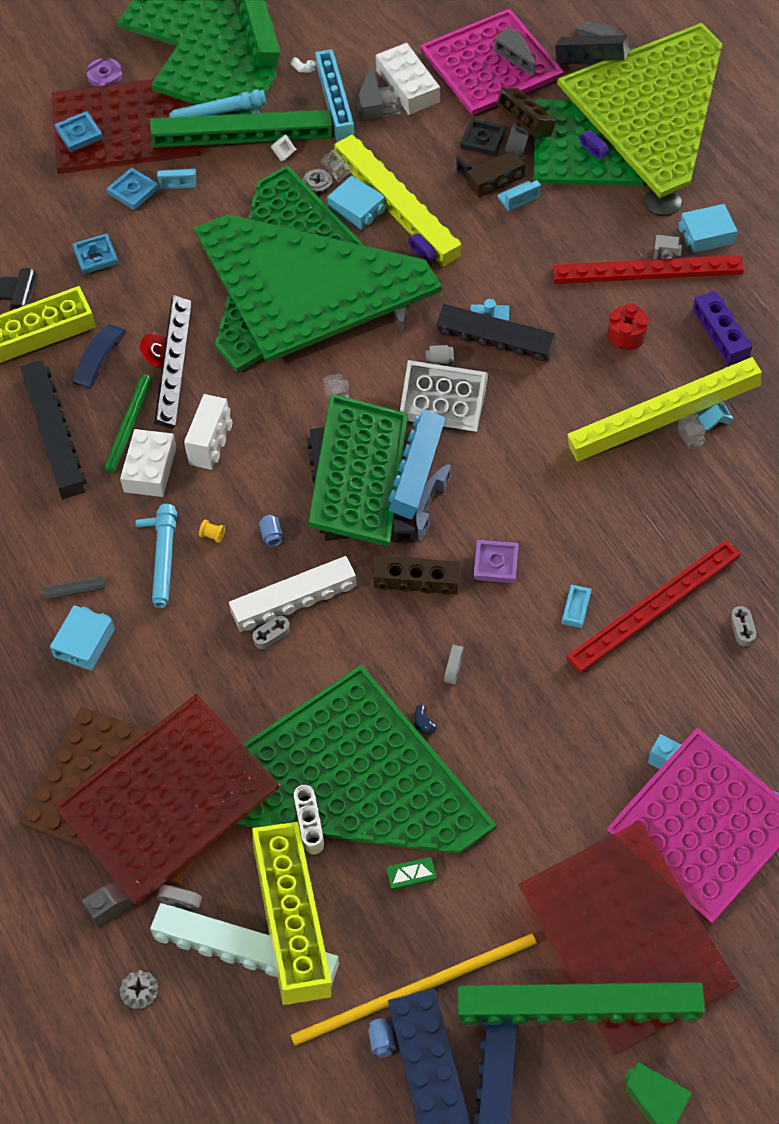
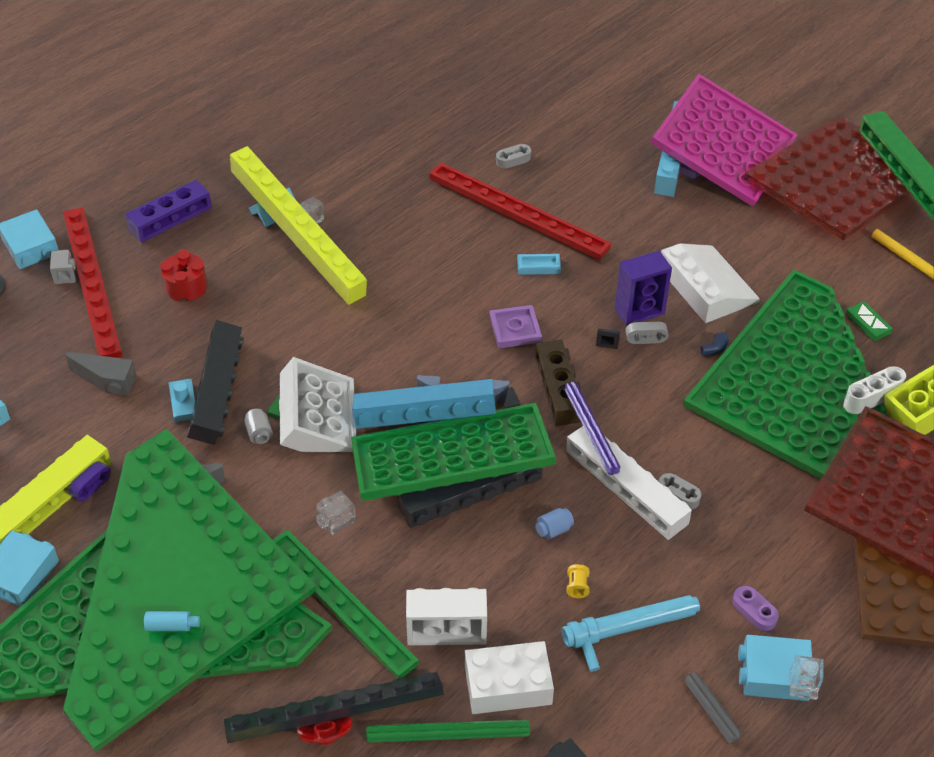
camera: 110 degrees left, 10 degrees down
(50, 631) = (806, 677): none -> clear brick
(142, 647) = (753, 608): none -> medium lavender plate
(259, 377) = (349, 609): none -> green plate
(263, 267) = (170, 621): none -> medium azure cylinder
(350, 571) = (592, 428): none -> axle
(460, 632) = (608, 338): none -> black slope
(493, 659) = (642, 287): none -> dark purple brick
(509, 743) = (707, 281): none -> white slope
(530, 265) = (106, 373): none -> dark grey slope

